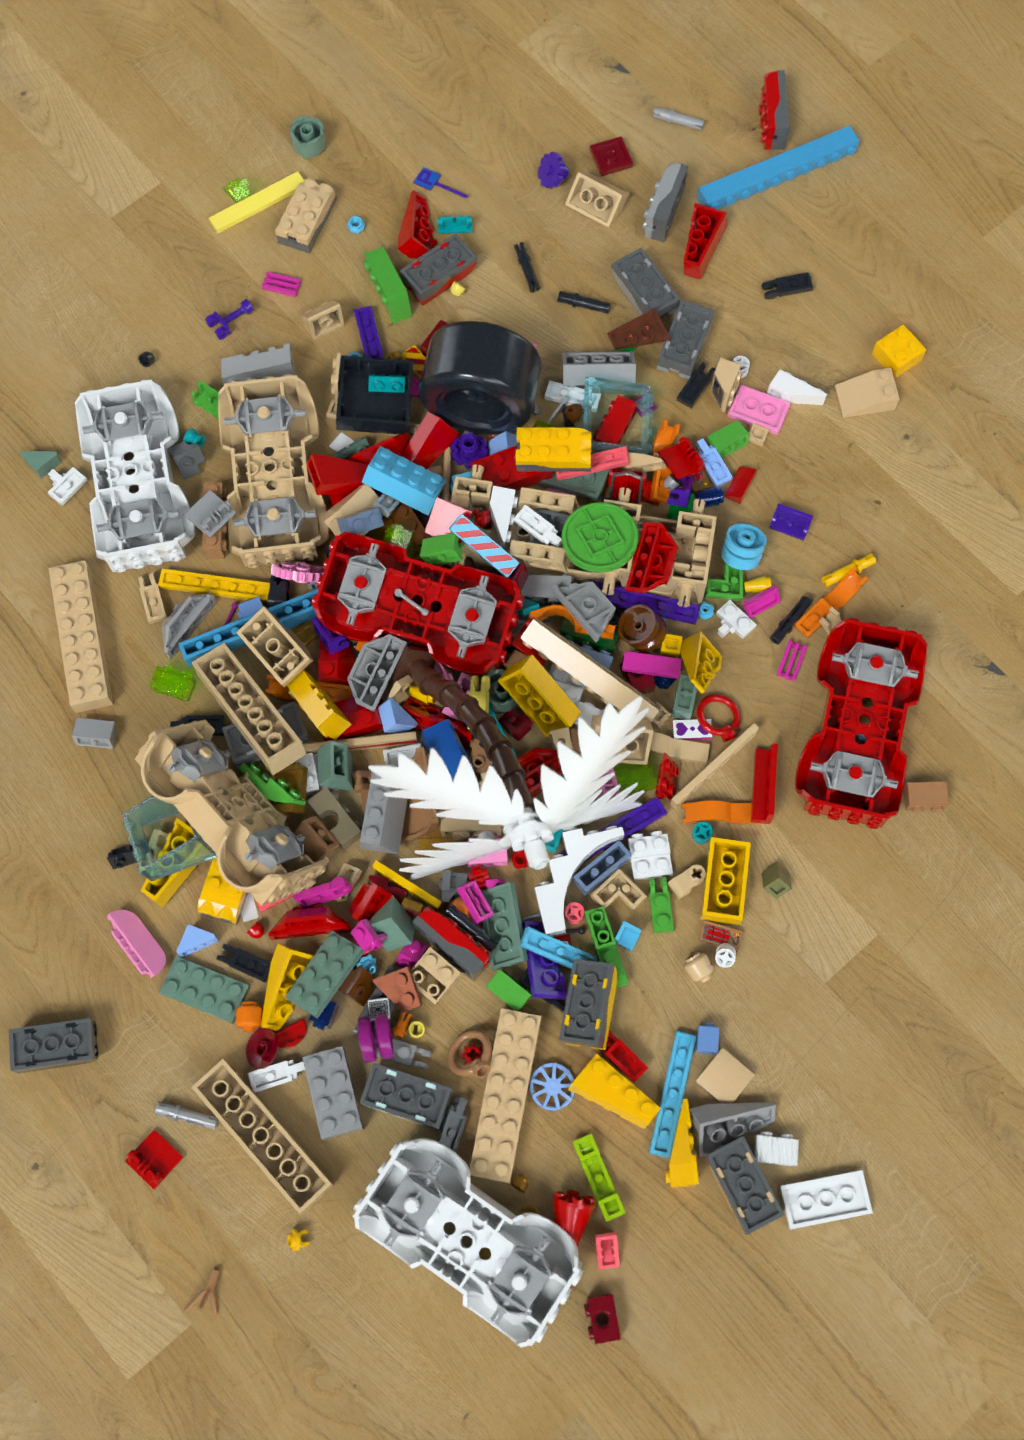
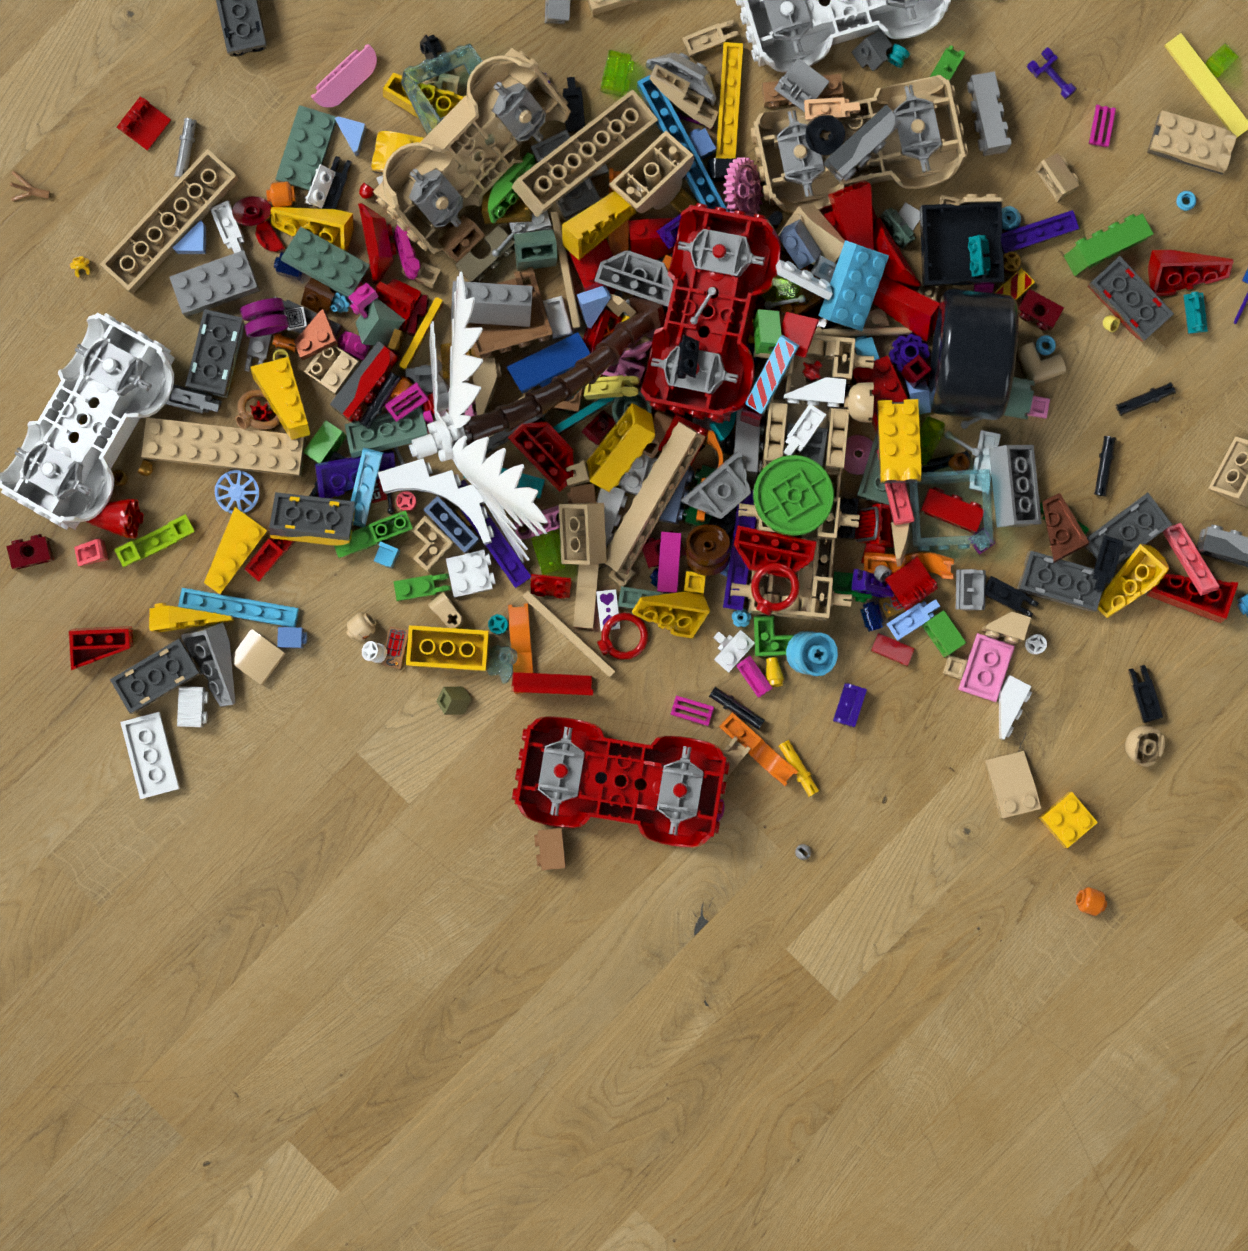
camera: 85 degrees right, 15 degrees up
(199, 624) = (677, 92): none -> tan slope
(236, 485) = (835, 106): none -> light nougat hinge
(240, 972) = (320, 186): none -> white hinge
(257, 498) = (814, 129): none -> black plate
(274, 454) = (861, 144): none -> piece
(286, 1112) = (194, 241): none -> light blue slope
(312, 781) = (517, 228): none -> light grey hinge
(394, 516) = (804, 279): none -> white plate
(414, 555) = (768, 304): none -> light grey hinge
(451, 1028) = (281, 392): none -> yellow wedge
(453, 616) = (688, 357): none -> black hinge
(488, 438) = (916, 371): none -> dark red brick
(515, 475) = (860, 401): none -> tan cylinder
(673, 296) = (1106, 561): none -> black hinge
(674, 236) = (1191, 559): none -> coral tile
(687, 278) = (1135, 578): none -> yellow wedge
(689, 413) = (970, 589): none -> light grey hinge
(705, 566) = (766, 606): none -> red piece
(705, 1246) = (97, 643): none -> red wedge
(743, 831) = (502, 662): none -> clear light blue plate
(833, 287) = (1144, 745): none -> tan cylinder
(929, 576) = (800, 855): none -> light grey hinge
(971, 338) = (1091, 901): none -> orange head

